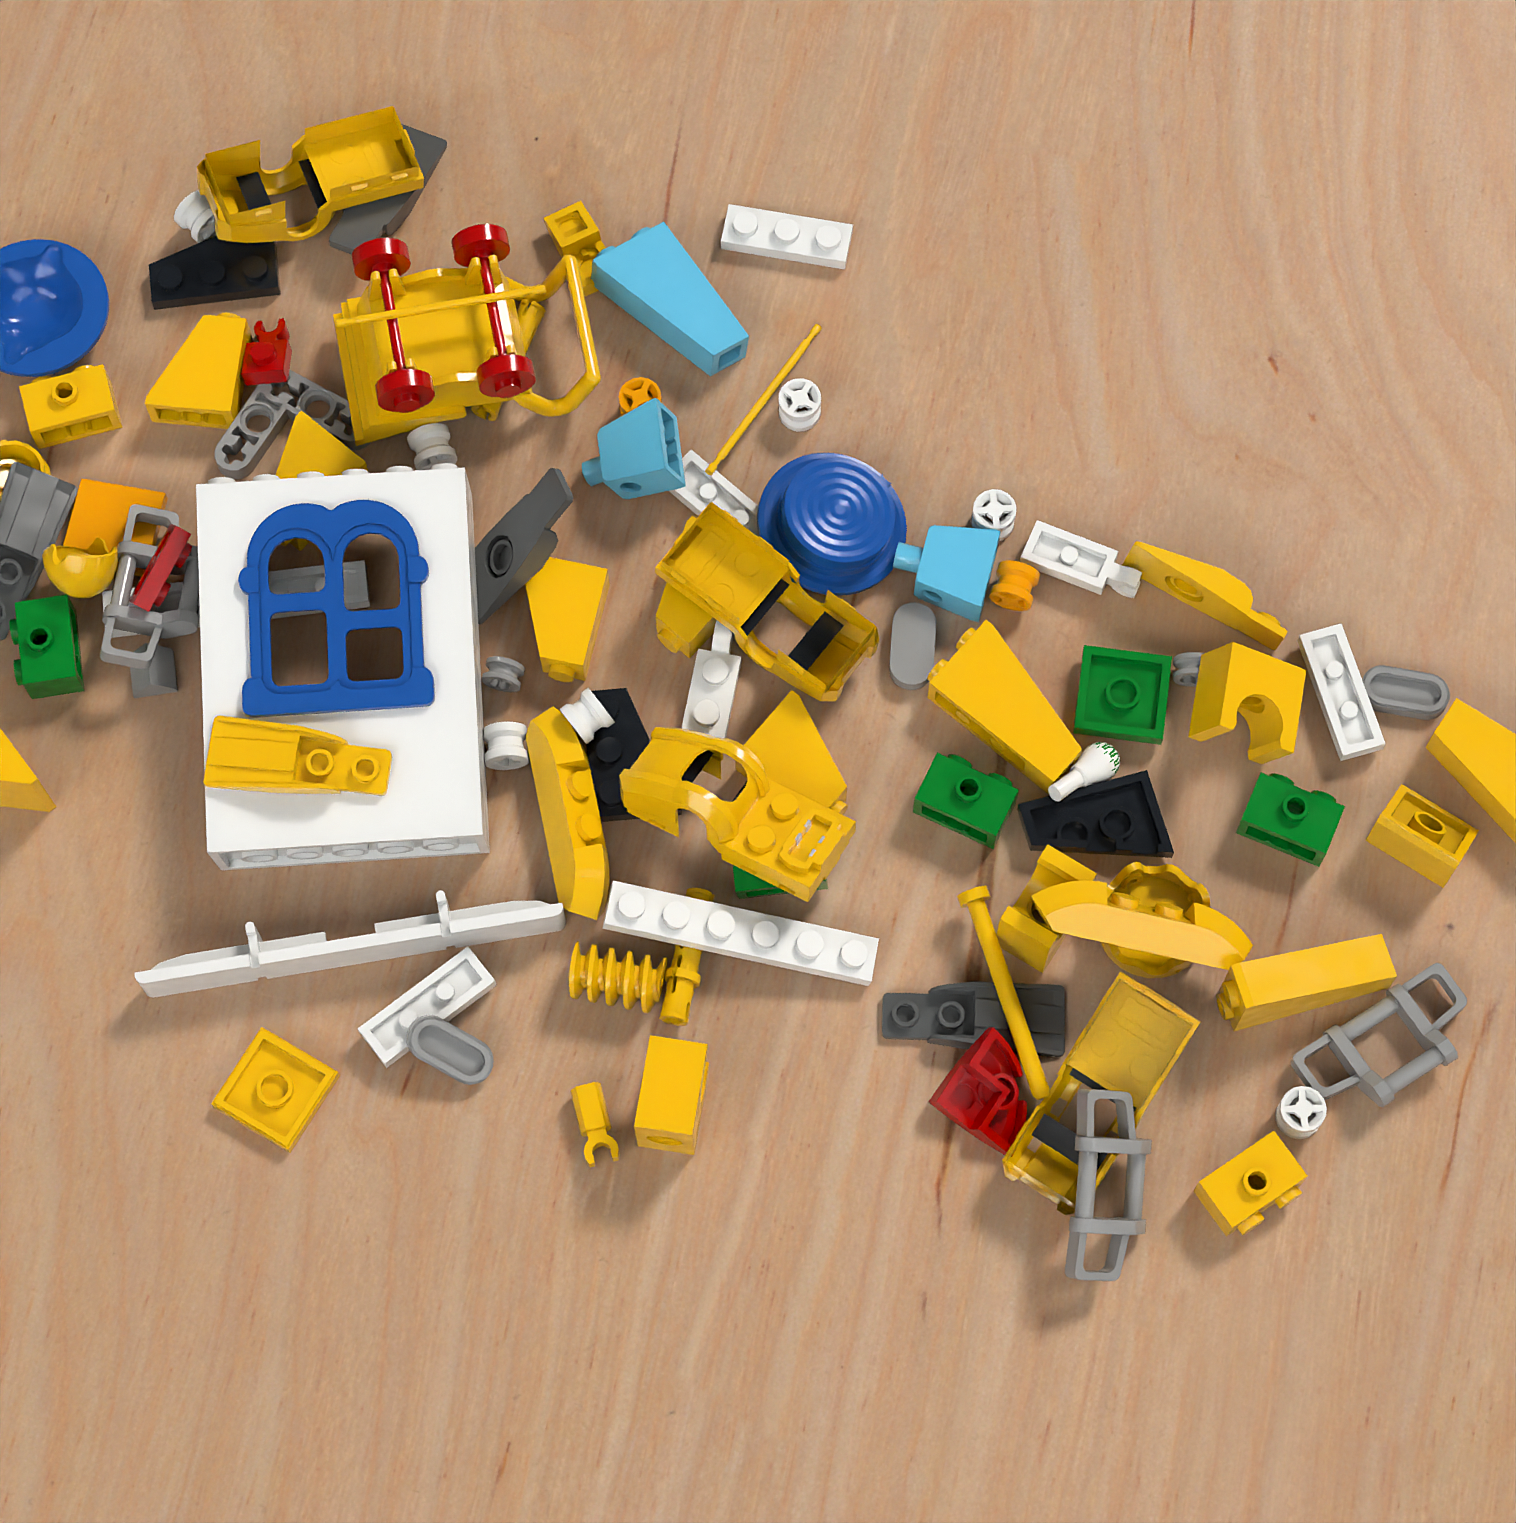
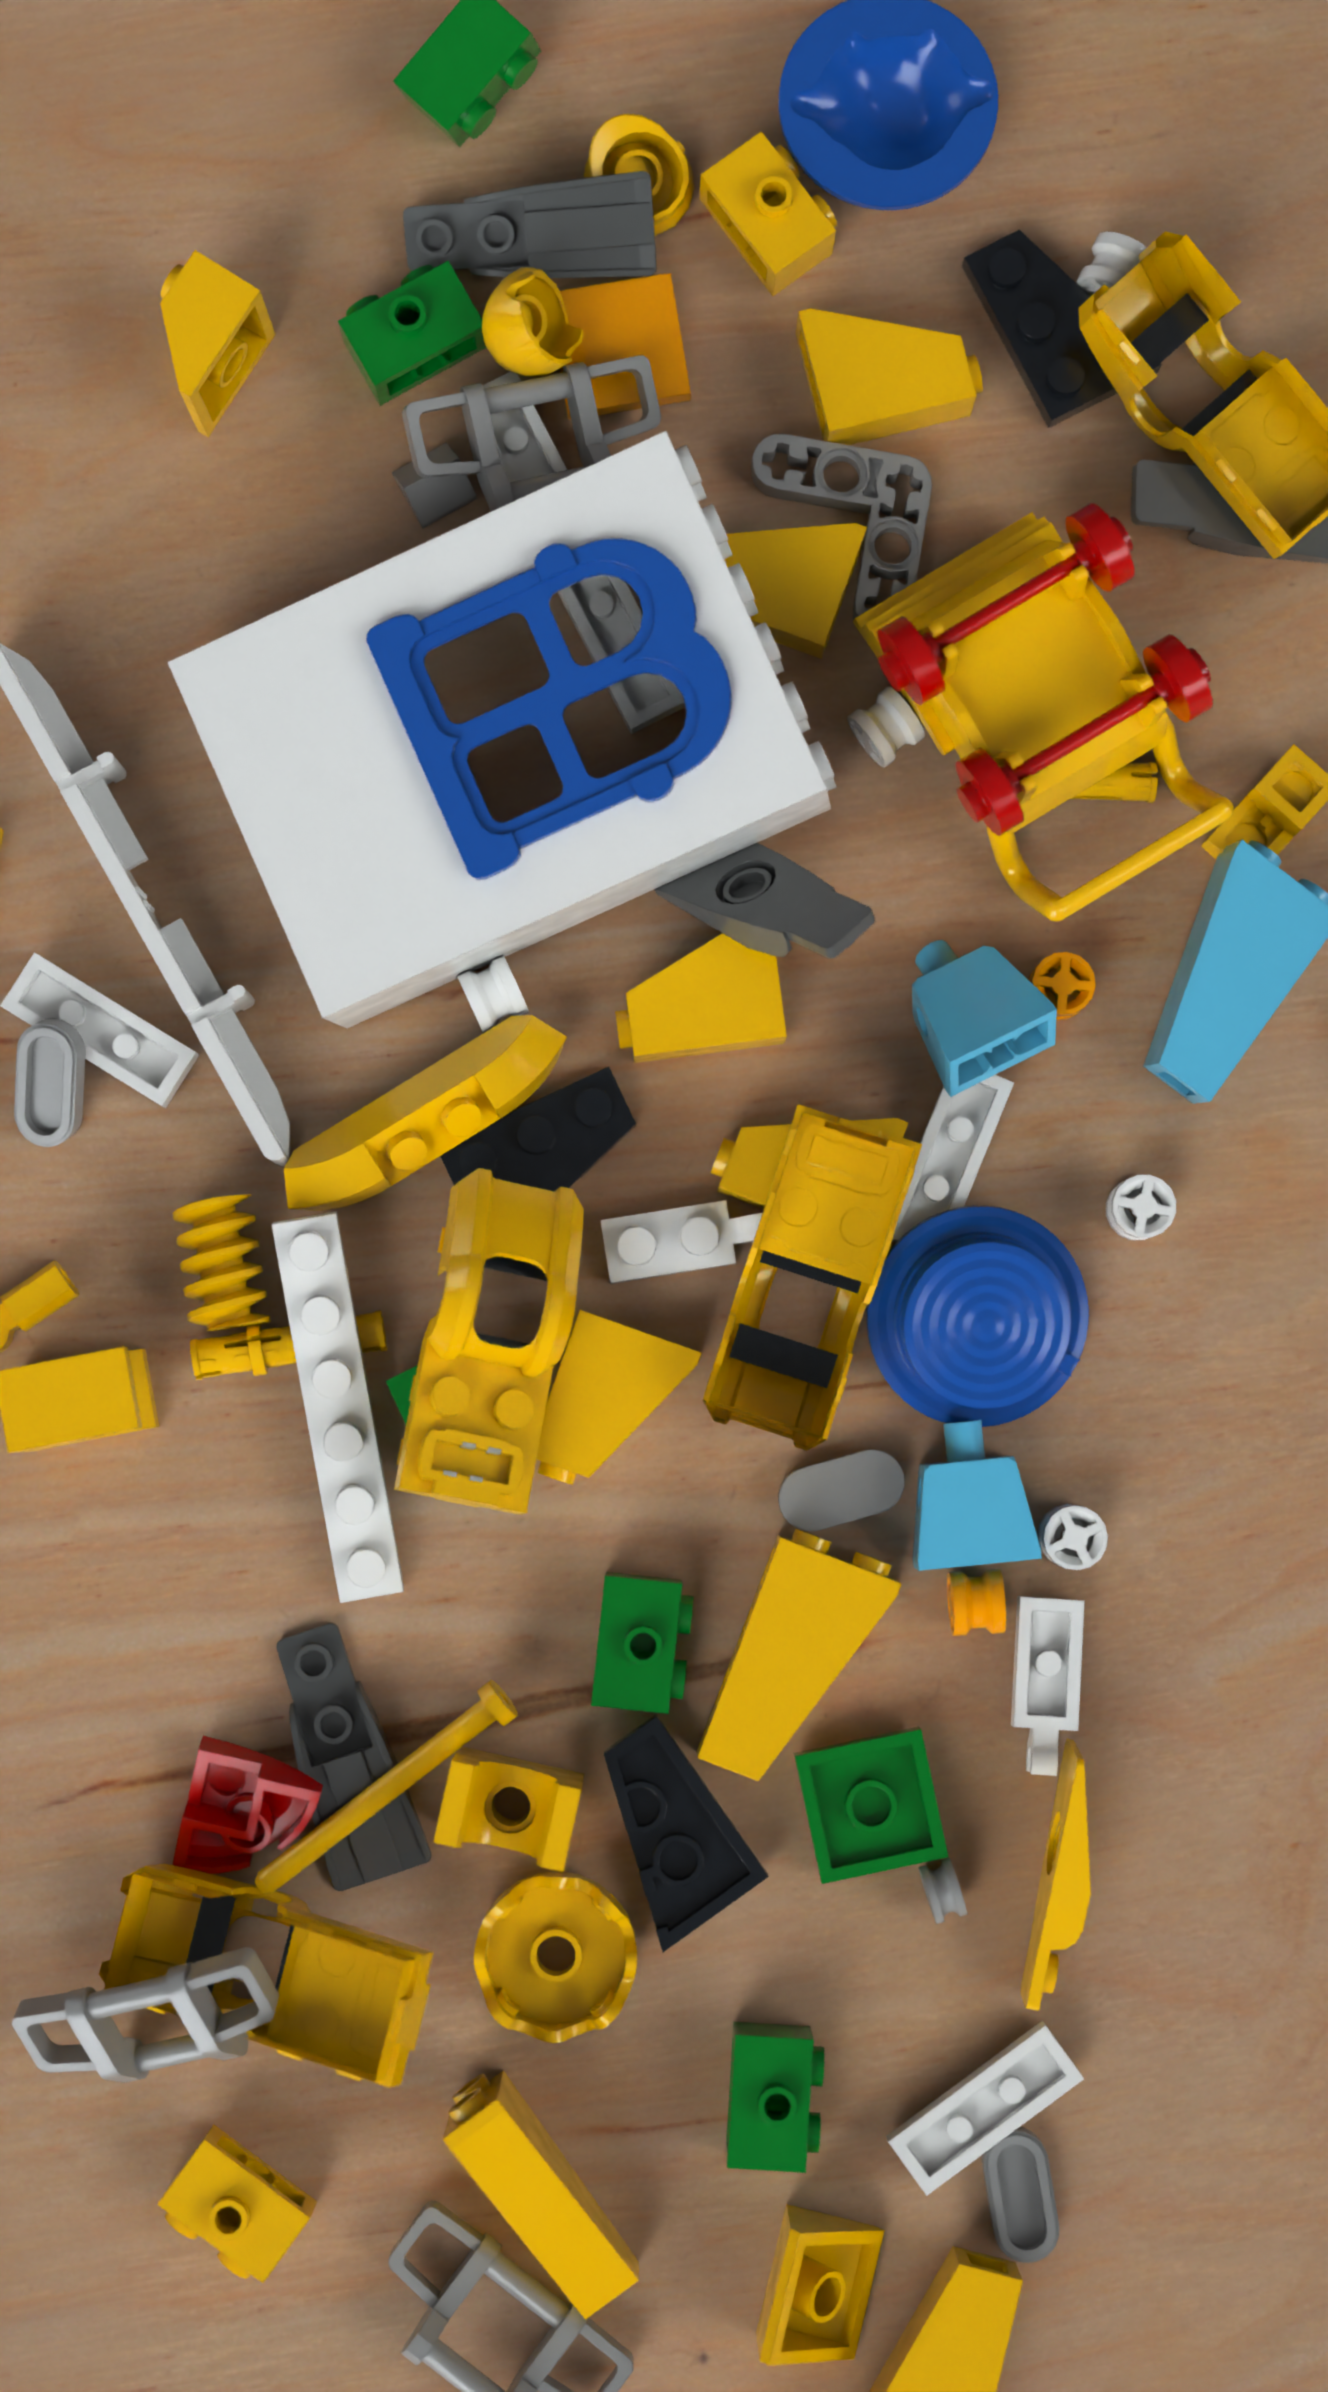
camera: 65 degrees right, 15 degrees up
(171, 552) = (535, 432): red plate -> none
(268, 358) = (938, 452): red plate -> none
(291, 760) = (325, 722): yellow piece -> none
(440, 306) = (1056, 659): yellow piece -> none
(503, 674) = (594, 951): light grey bush -> none
(587, 715) = (562, 1089): white wheel -> none
(763, 399) = (1130, 1154): yellow piece -> none
(1095, 765) = (754, 1805): white piece -> none
(1195, 936) = (513, 1959): yellow brick -> none
(1256, 686) = (935, 1997): yellow piece -> none
(1303, 1103) = (355, 2251): white wheel -> none

